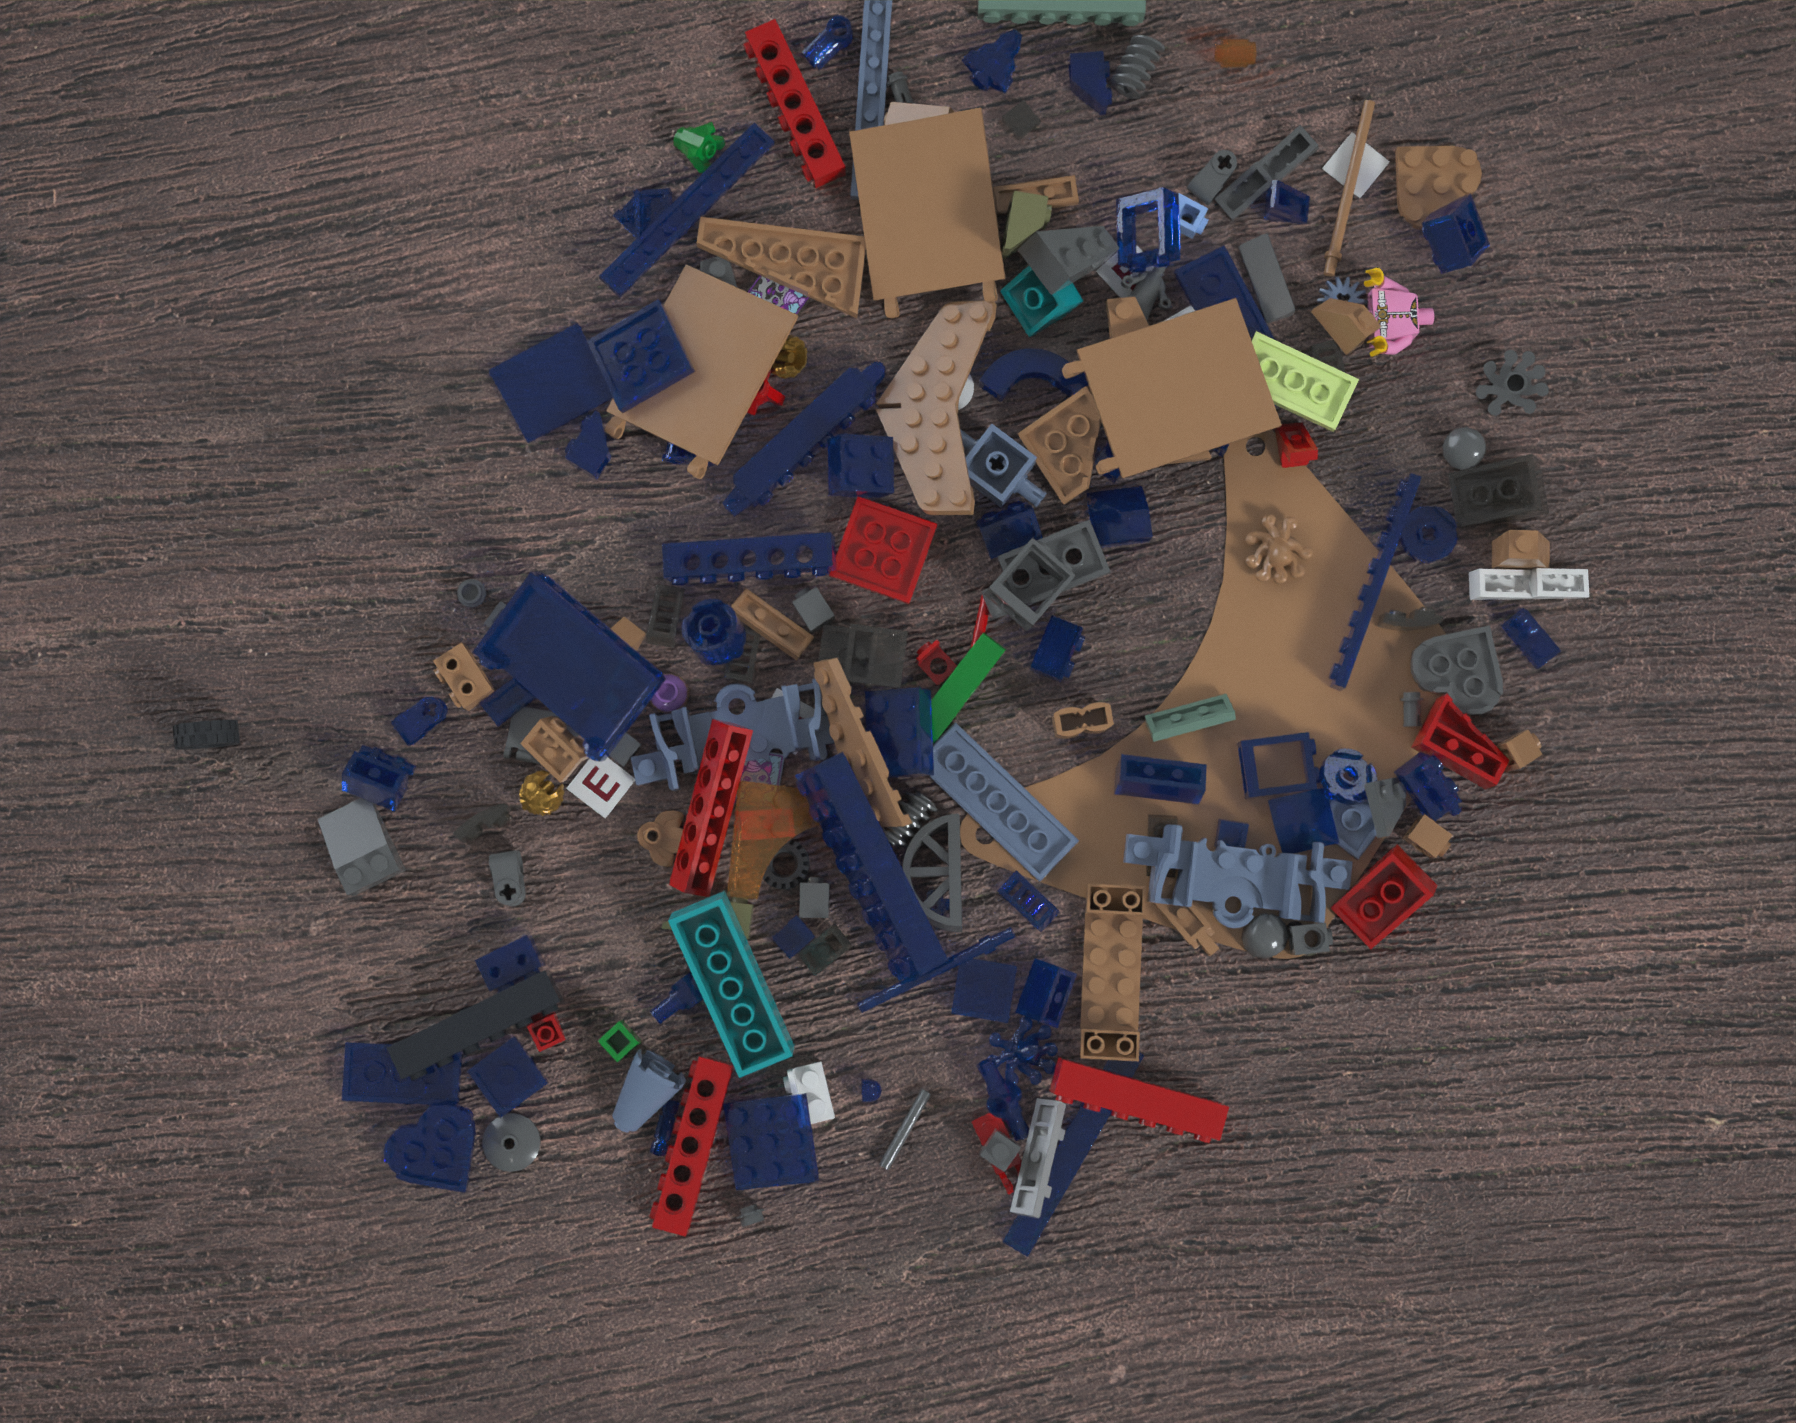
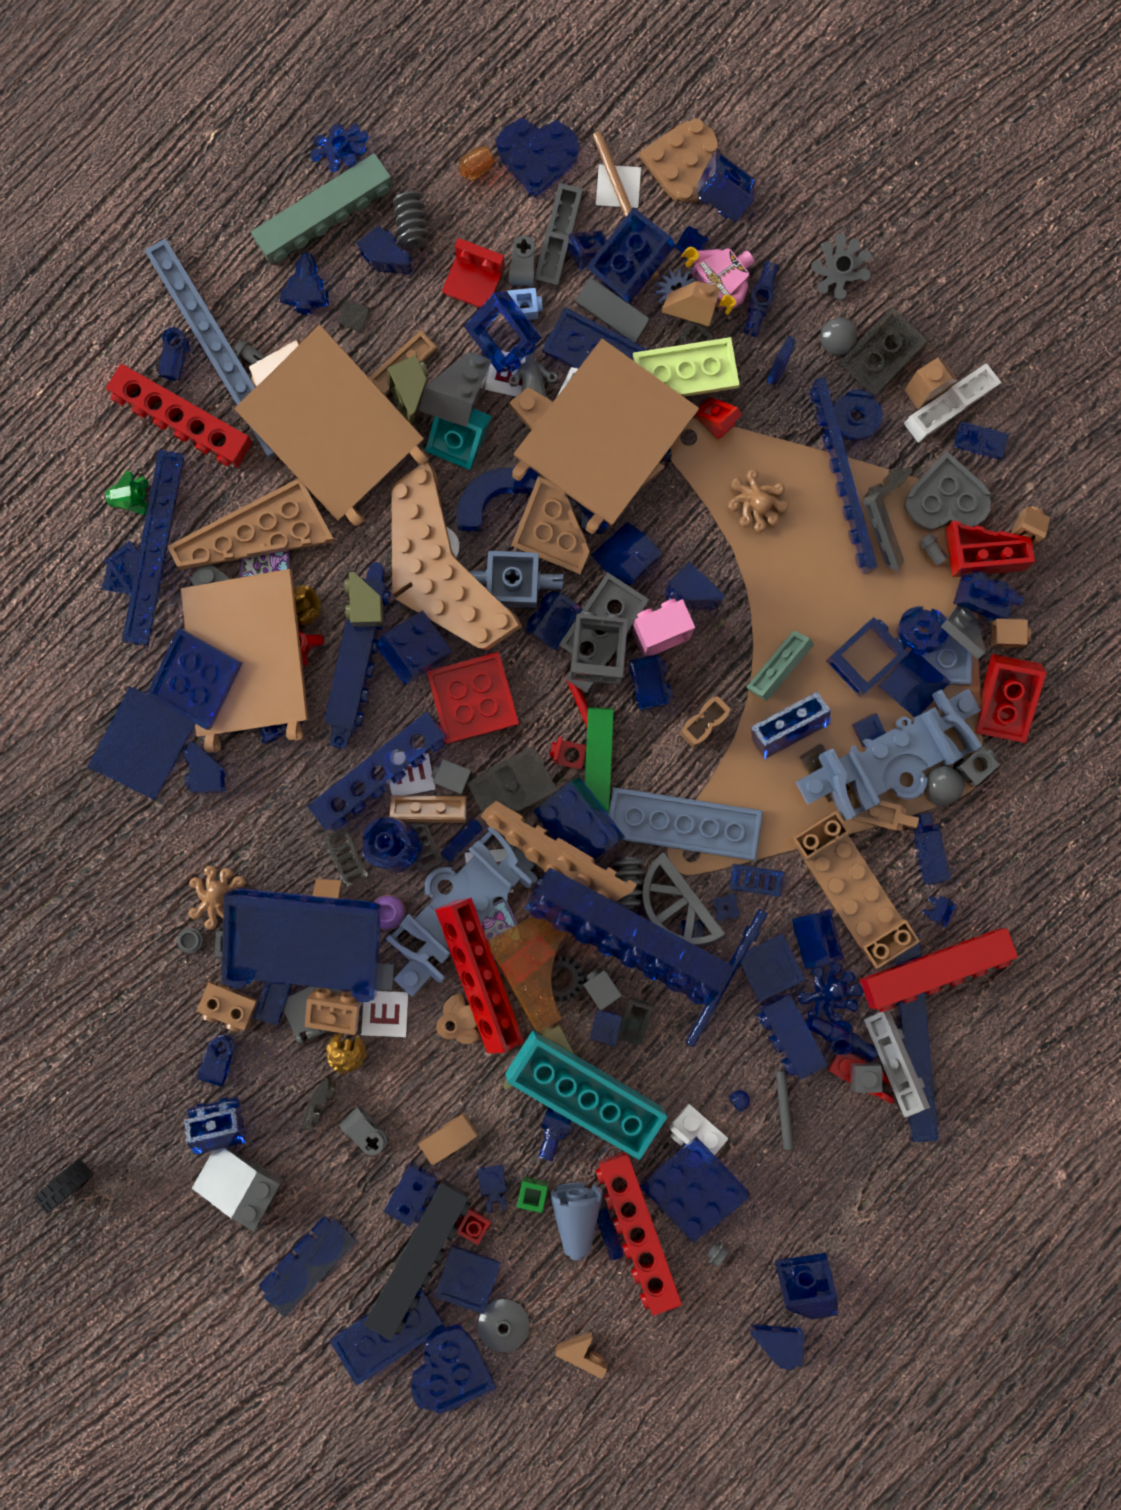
camera: 35 degrees left, 0 degrees up
(368, 966) = (314, 1261): none -> clear blue windscreen
(519, 568) = (213, 898): none -> medium nougat animal
(558, 1211) = (575, 1353): none -> medium nougat slope
(579, 937) = (448, 1139): none -> medium nougat slope
(591, 1007) = (492, 1182): none -> clear blue plate
(750, 1337) = (781, 1344): none -> clear blue slope
(779, 589) = (416, 779): none -> white sticker
(781, 674) = (461, 840): none -> clear blue axle
(812, 1303) = (808, 1286): none -> clear blue slope
(844, 394) = (365, 603): none -> olive slope
(957, 1064) = (790, 1036): none -> clear blue brick
(989, 902) = (732, 910): none -> clear blue plate
(1103, 606) = (662, 628): none -> bright pink piece
(1156, 591) = (694, 589): none -> clear blue slope
(1160, 156) = (473, 273): none -> red bracket
(1180, 1049) = (942, 912): none -> clear blue tile
(1210, 987) = (930, 851): none -> clear blue hinge
(1299, 84) = (537, 154): none -> clear blue plate
(1318, 239) = (631, 256): none -> clear blue brick
(1376, 659) = (883, 531): none -> dark grey slope
(1388, 262) = (691, 238): none -> clear blue tile
(1390, 433) = (781, 360): none -> clear blue tile
(1405, 372) = (764, 288): none -> clear blue pin

